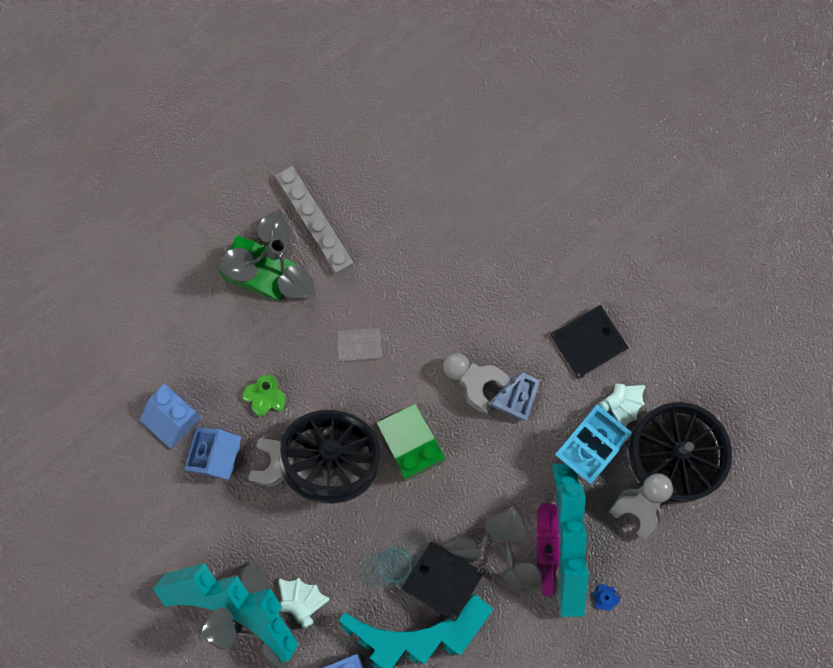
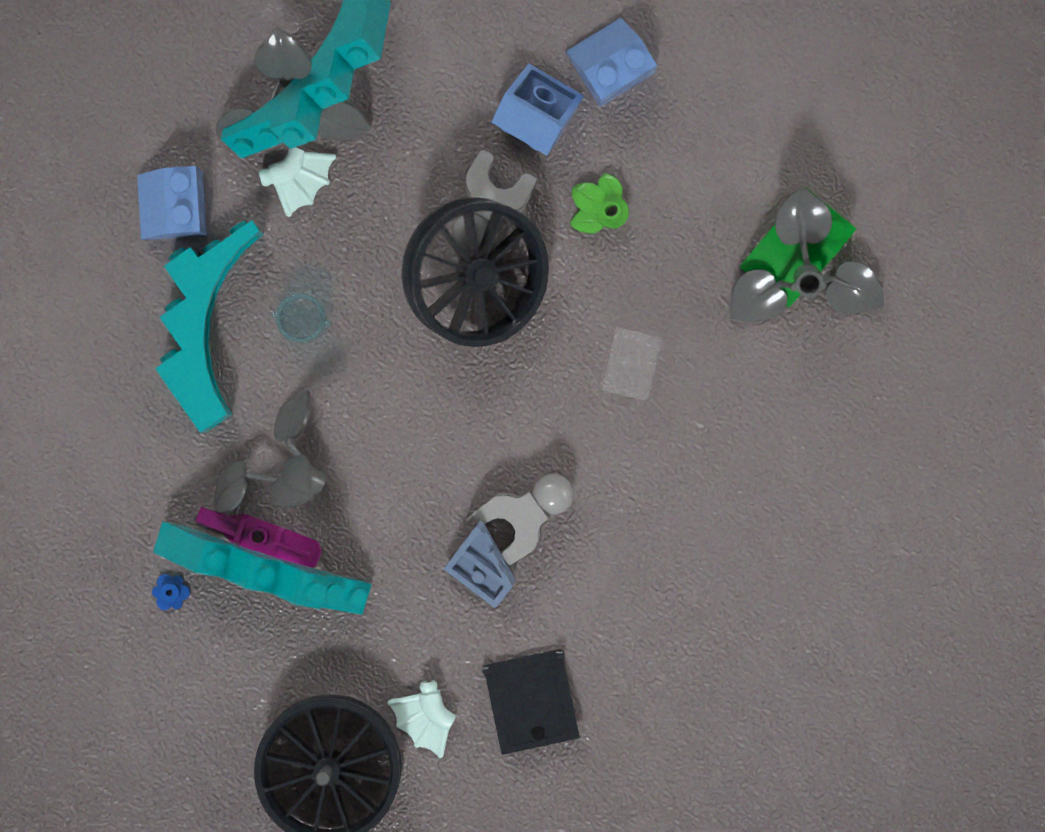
camera: 105 degrees right, 15 degrees up
(314, 220) = (853, 354): light grey plate -> none
(411, 442) = (465, 393): slope -> none
(443, 581) = (259, 377): black container -> none
(593, 444) = (376, 649): medium azure bracket -> none
(644, 502) = (273, 689): light grey piece -> none

